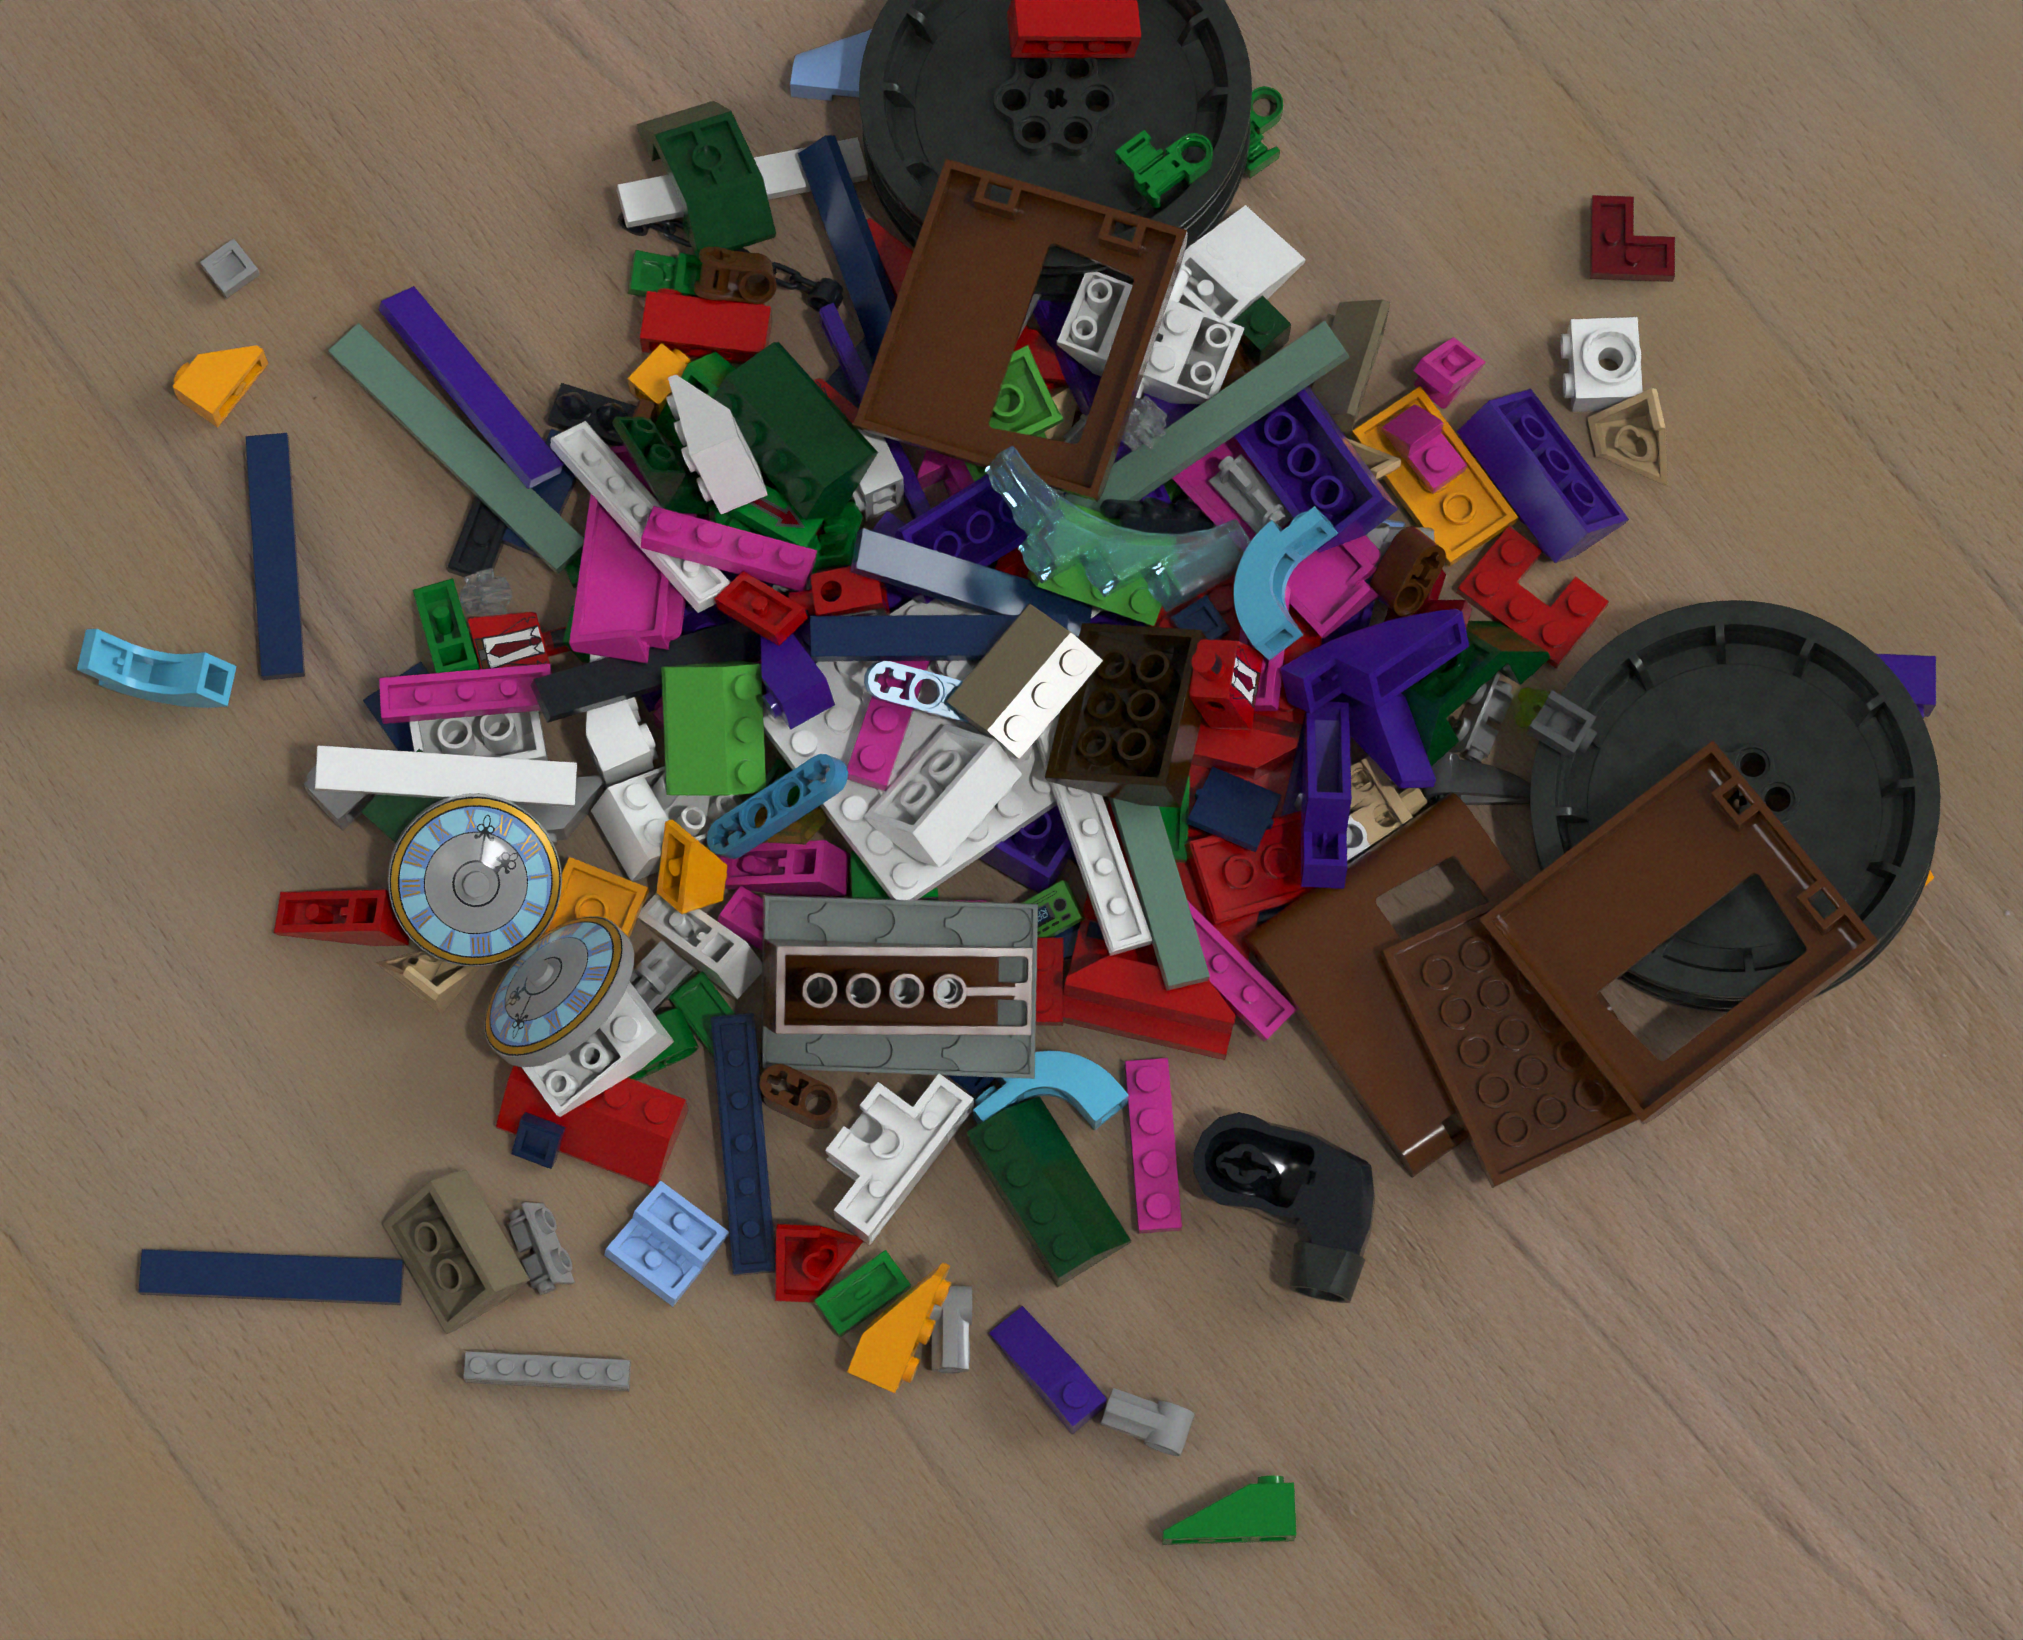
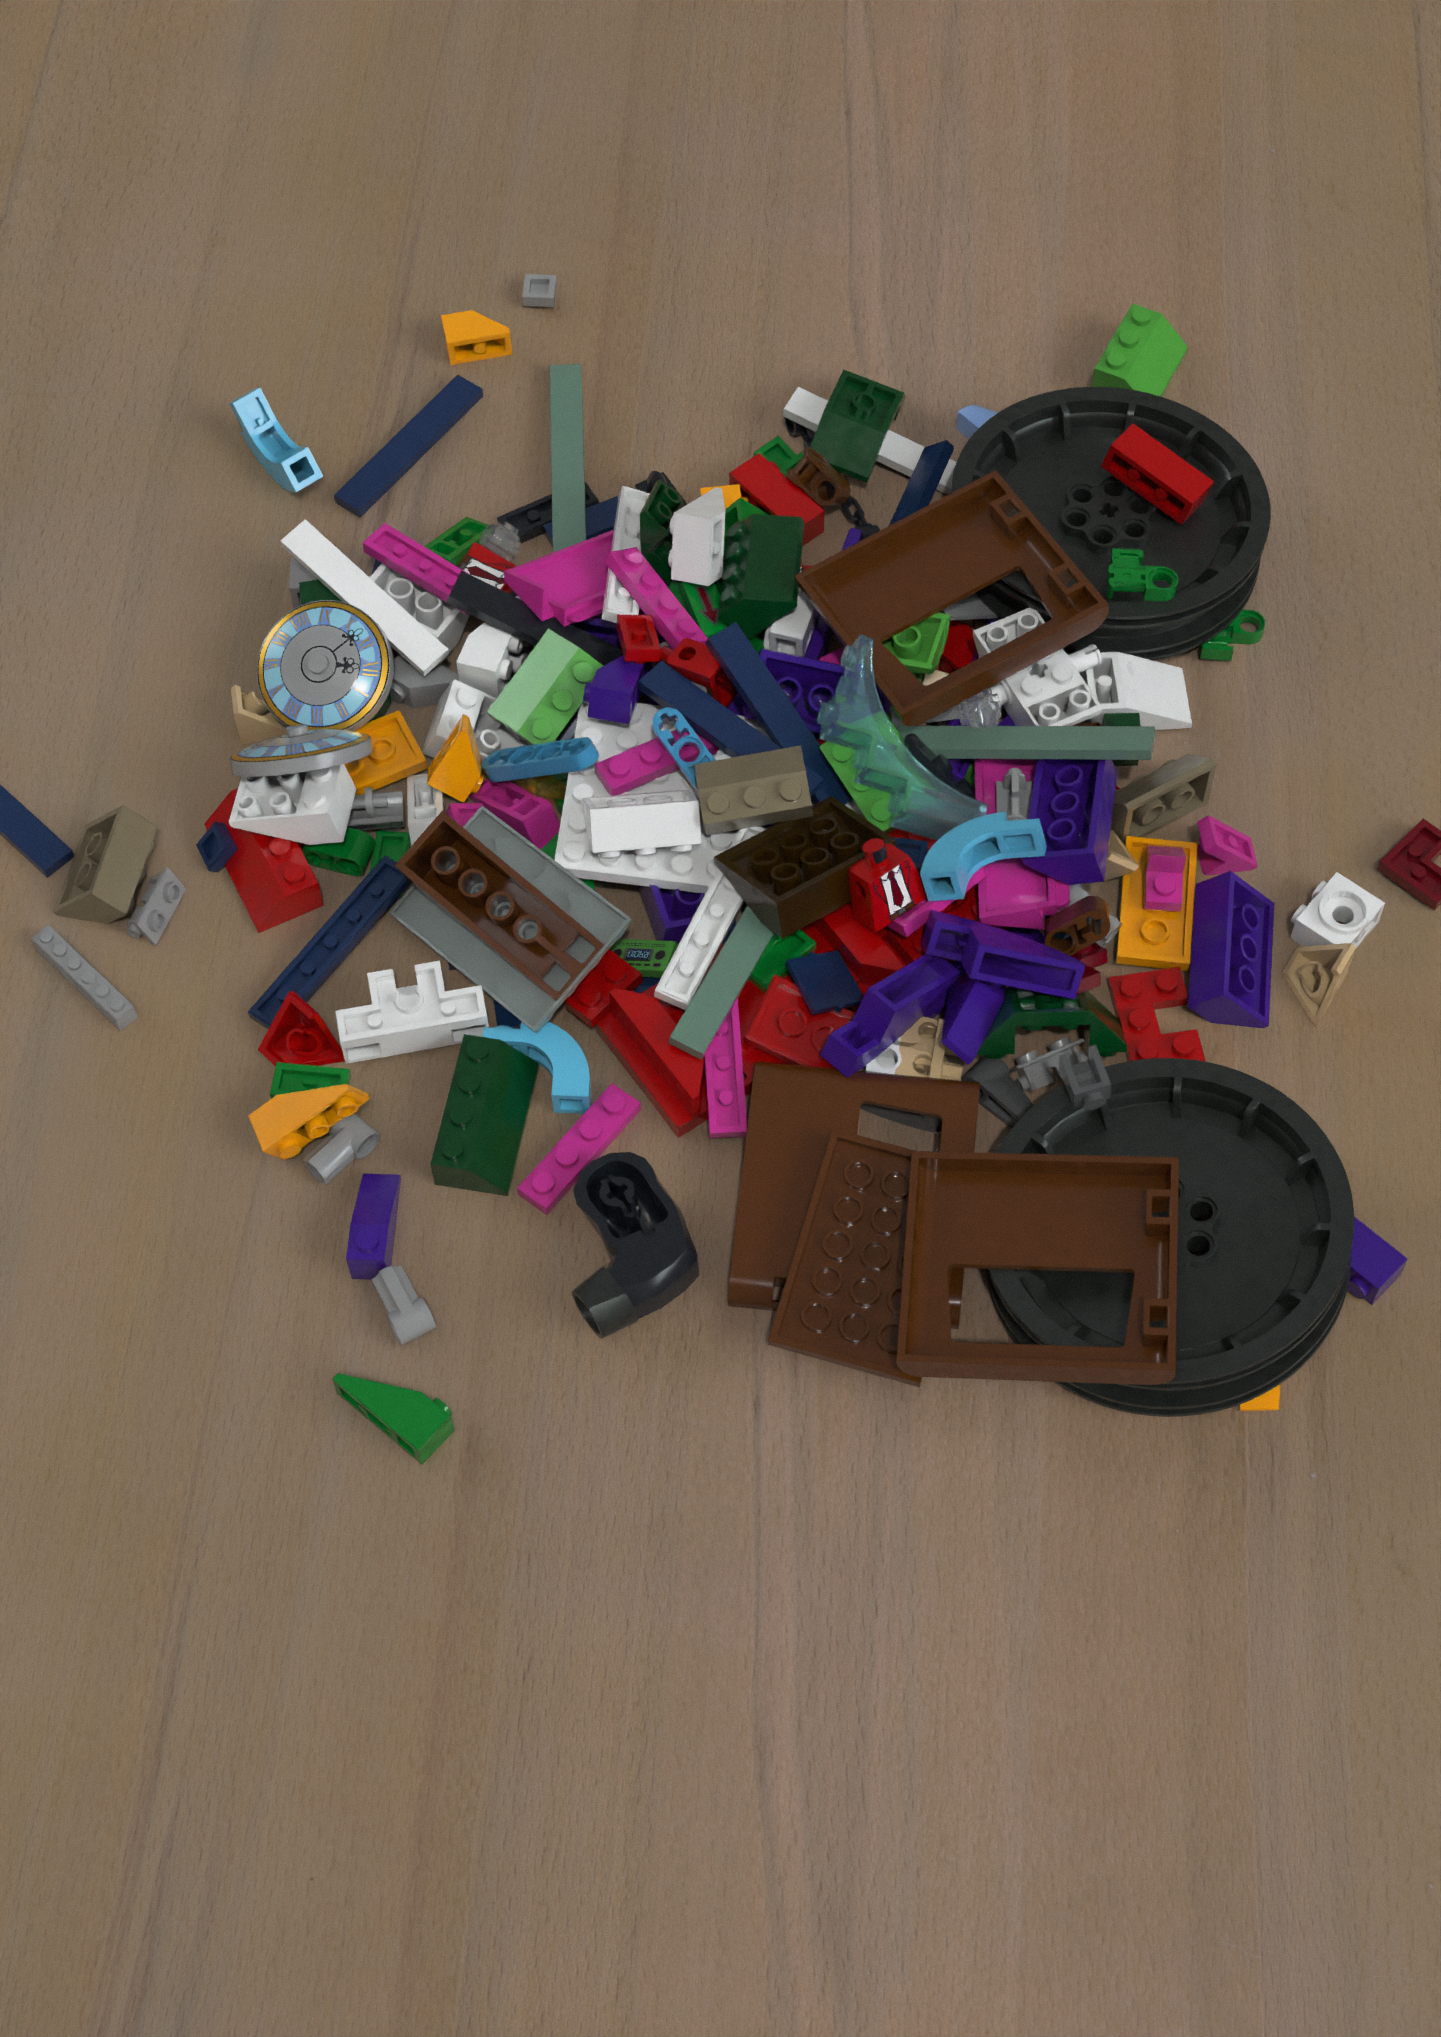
camera: 45 degrees right, 15 degrees down
(341, 917) = (235, 643): red slope -> none
(471, 387) = (607, 436): dark purple tile -> none
(666, 1243) = (229, 964): light blue slope -> none
(785, 1101) = (395, 945): reddish brown beam -> none

